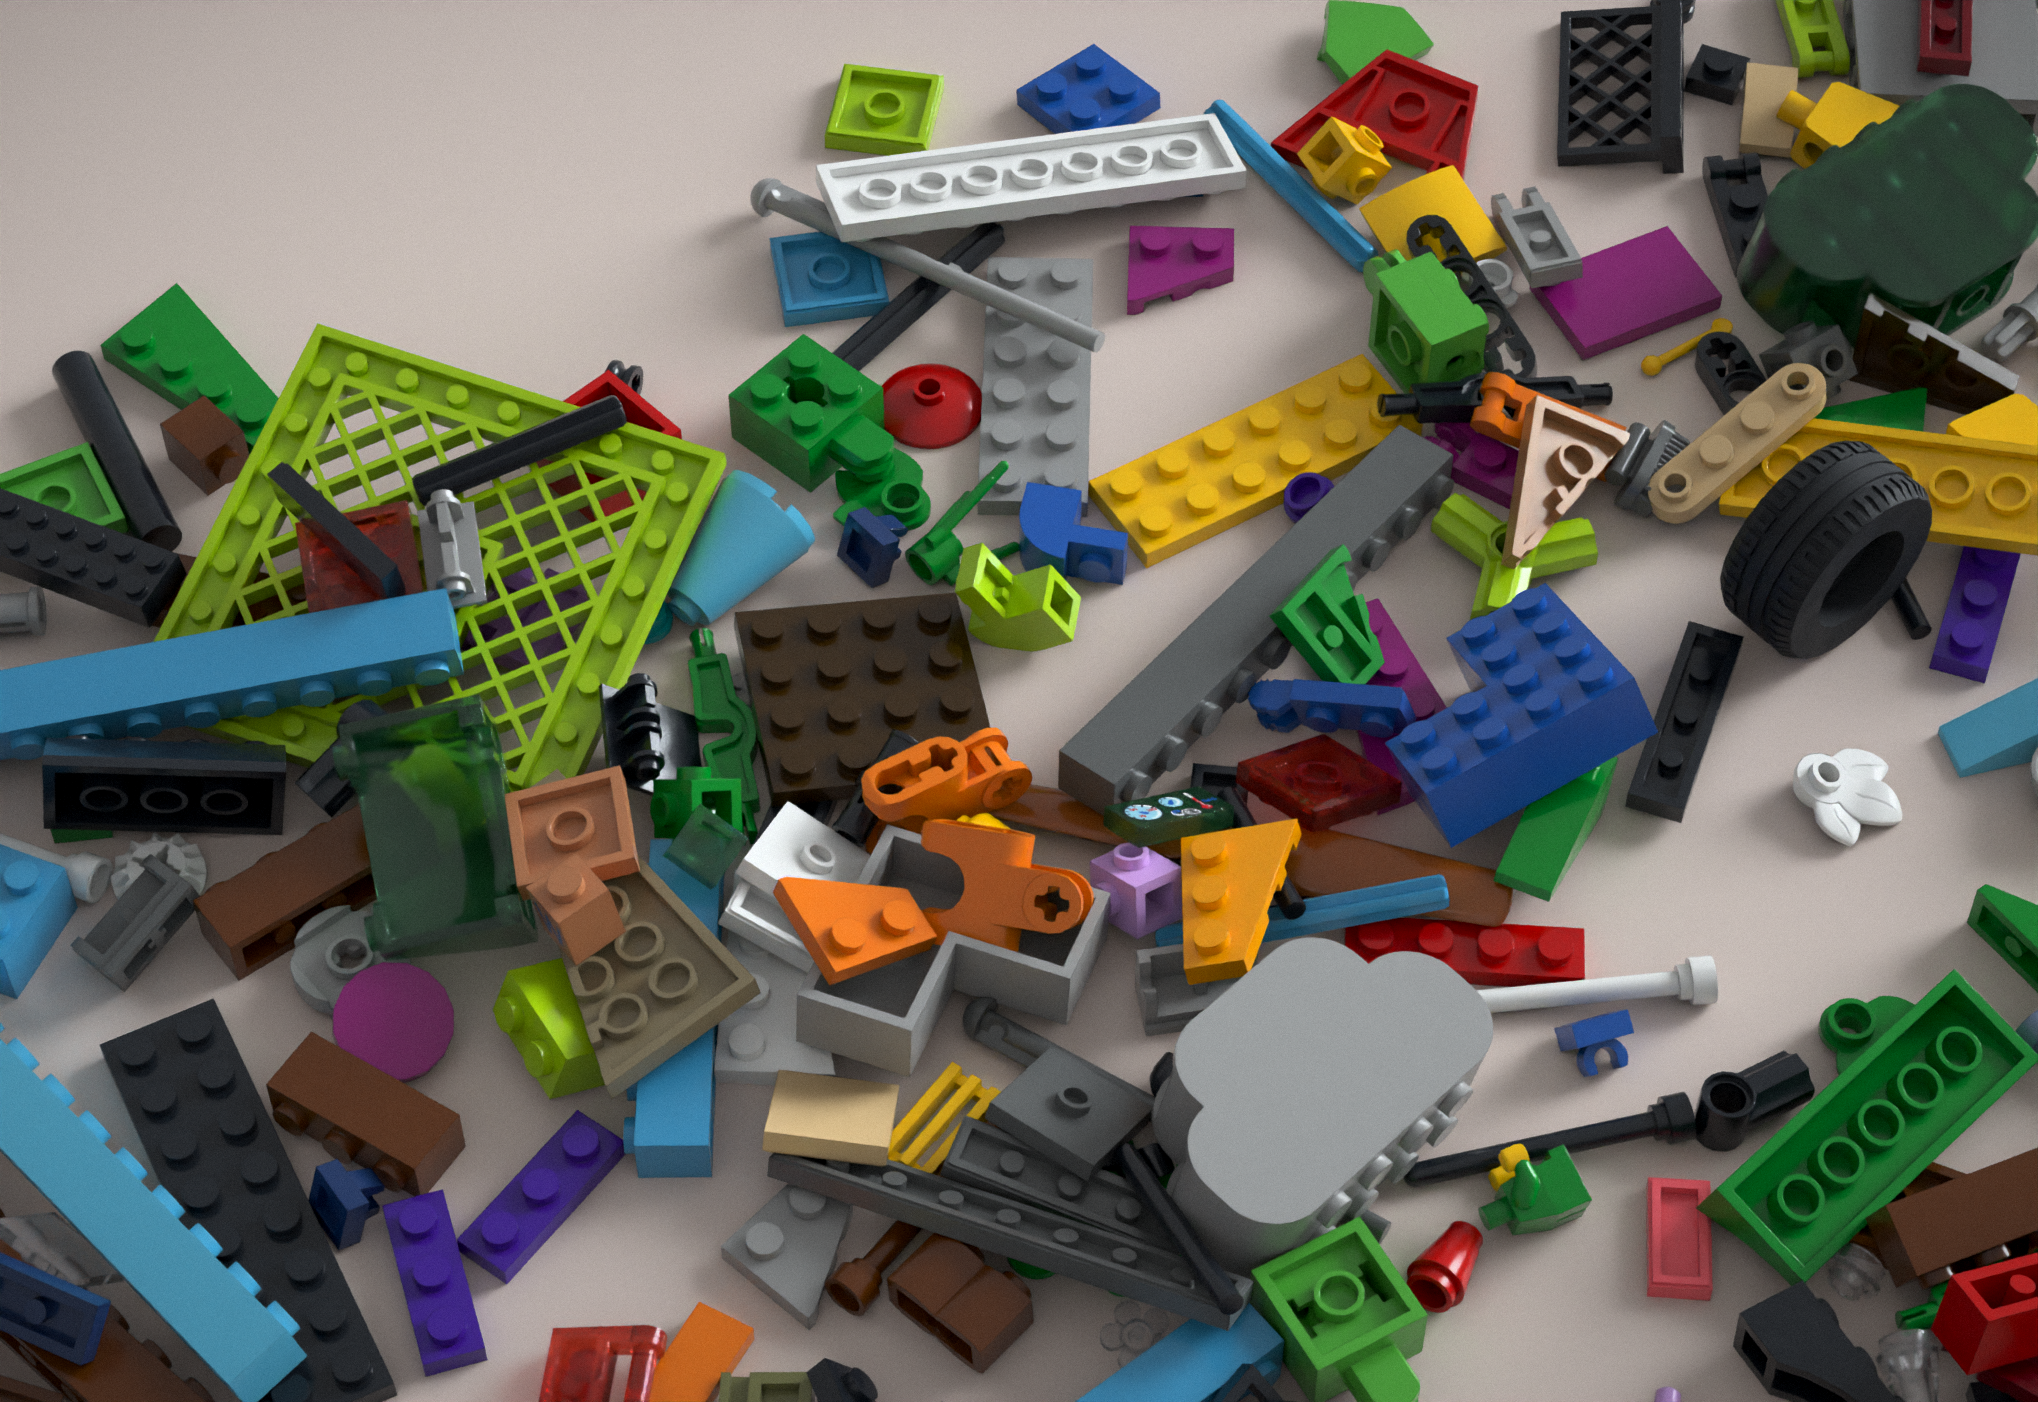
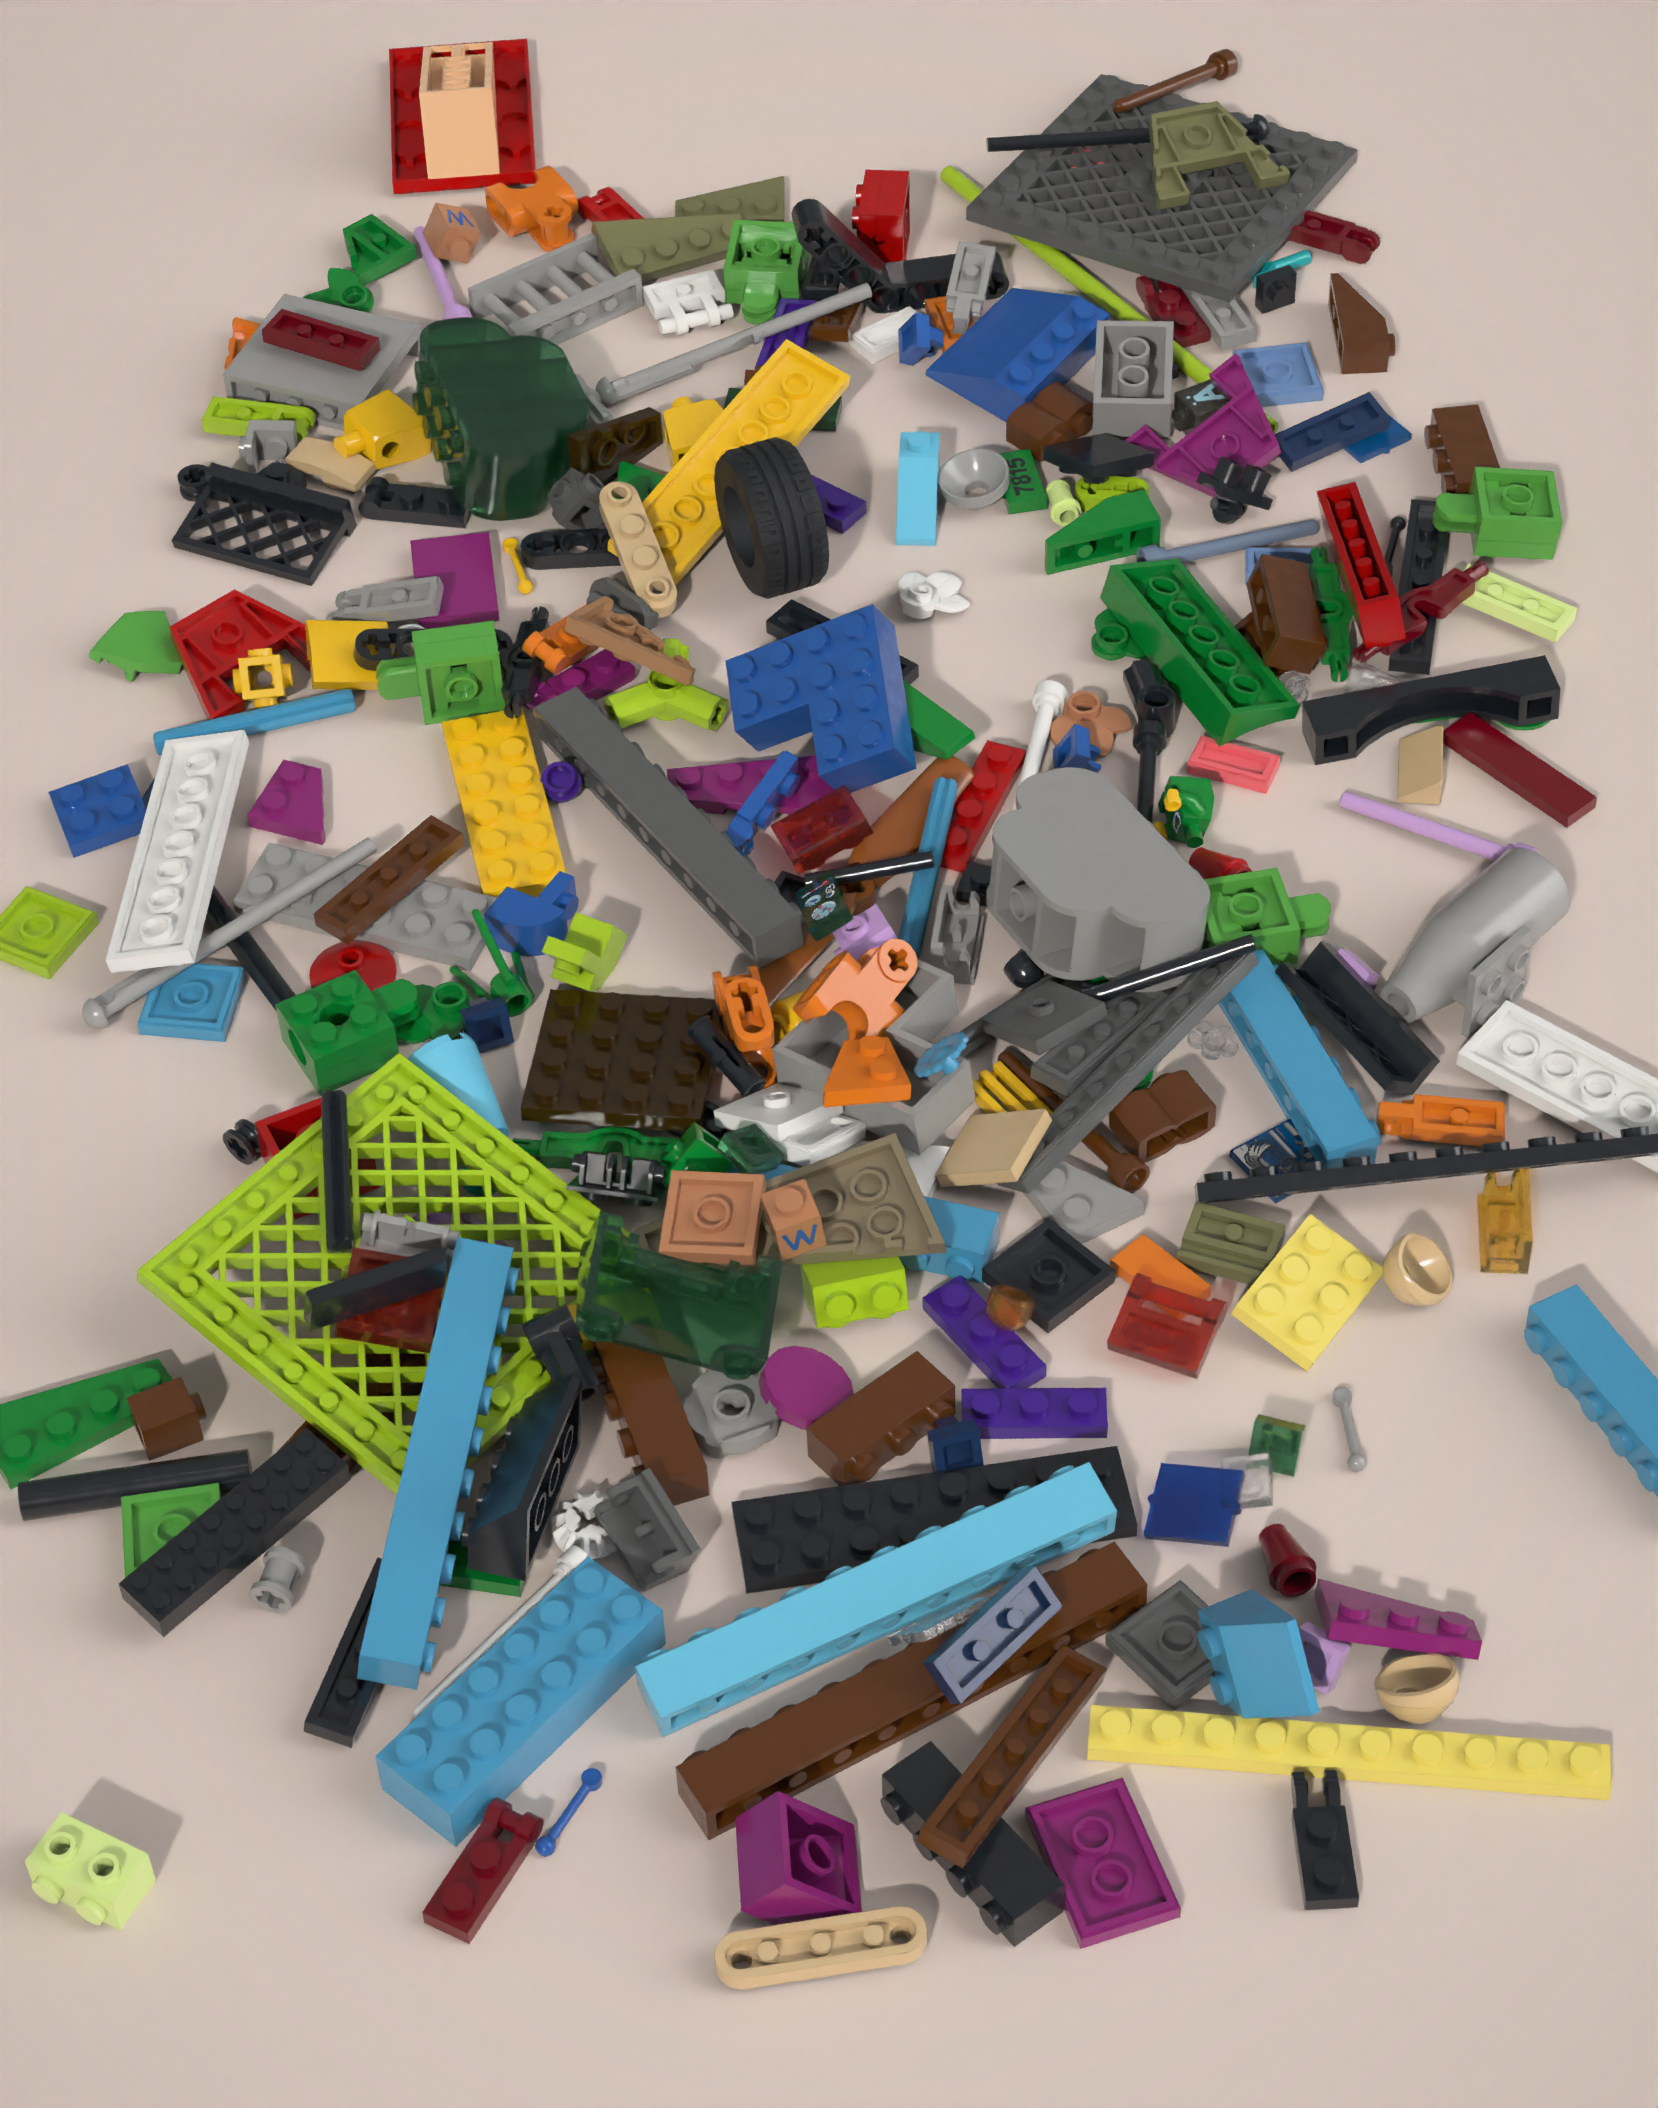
camera: 70 degrees left, 5 degrees down
(585, 1200) = (1009, 1307): none -> clear orange piece
(651, 1238) = (1052, 1270): none -> black plate
(890, 991) = (942, 1056): none -> dark azure piece
(1050, 376) = (388, 879): none -> reddish brown plate
(1228, 893) = (912, 884): light orange wing -> none
(1330, 623) = (700, 779): green wing -> none
(1666, 1046) = (1089, 712): none -> nougat plate
(1765, 31) = (267, 441): none -> light grey bracket

